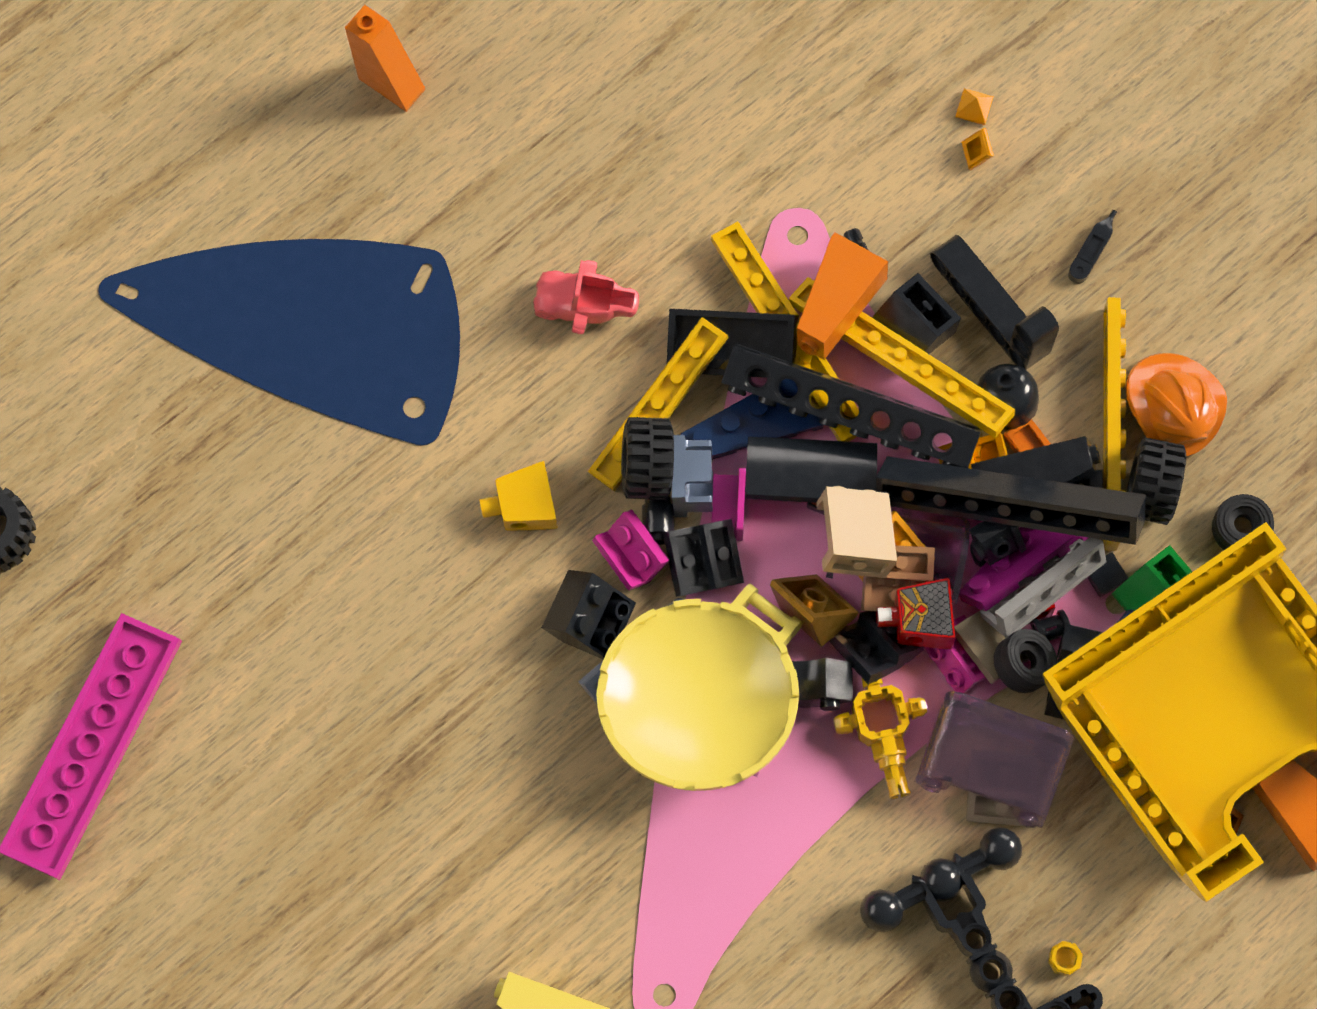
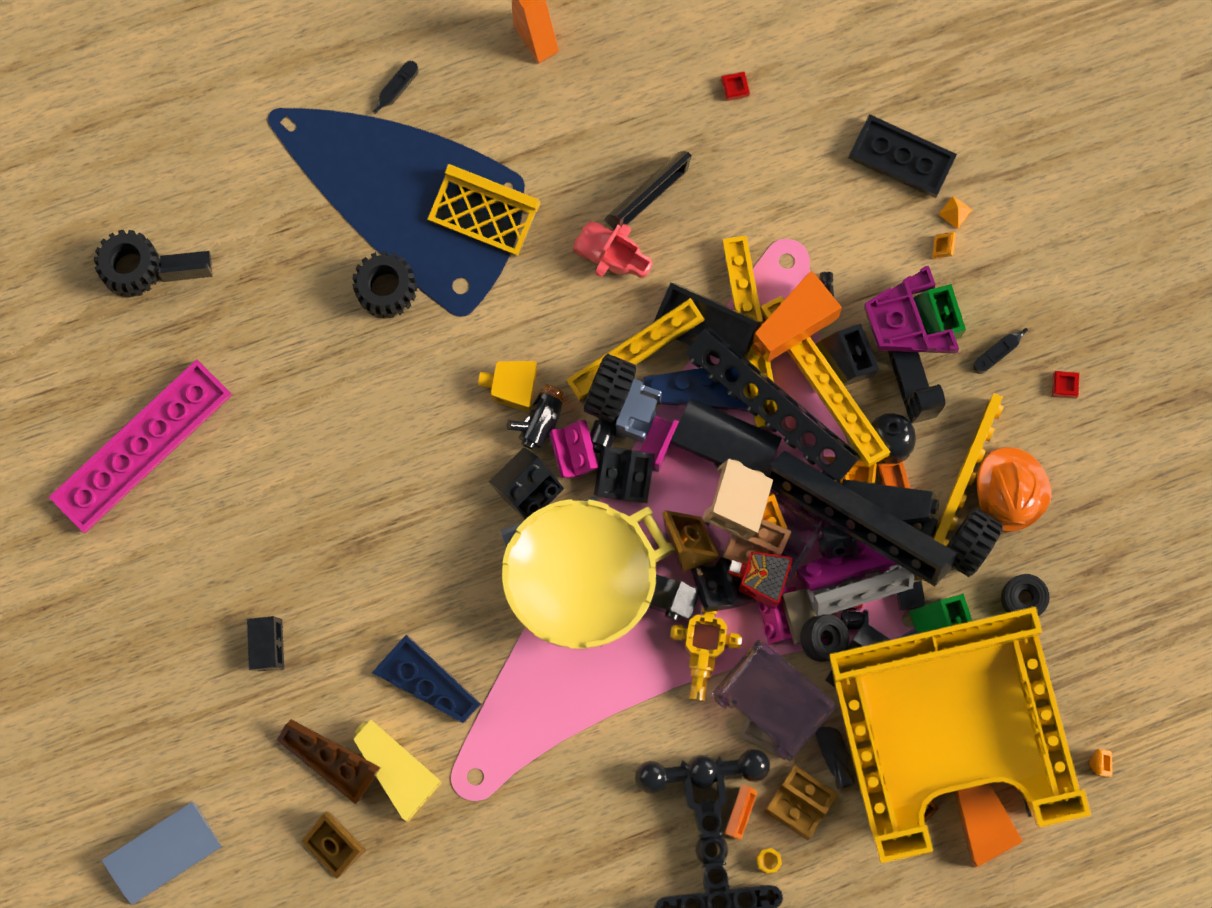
camera: 15 degrees right, 5 degrees up
(64, 507) = (185, 266): none -> black panel
(244, 197) = (397, 85): none -> black piece
(307, 417) = (379, 266): none -> black tyre
(340, 930) = (265, 643): none -> black hinge
(408, 279) = (492, 190): none -> yellow fence
(551, 896) = (423, 677): none -> dark blue wing
(576, 528) = (541, 418): none -> black piece
(601, 209) = (649, 190): none -> black slope
(654, 53) = (735, 86): none -> red tile
(886, 63) = (902, 156): none -> black plate
(962, 256) = (898, 322): none -> magenta wing
(1002, 234) = (940, 311): none -> green slope
(1008, 911) = (741, 812): none -> orange tile
(1075, 873) = (801, 802): none -> pearl gold slope
(1094, 800) = (835, 755): none -> black piece
(1186, 258) = (1065, 384): none -> red tile

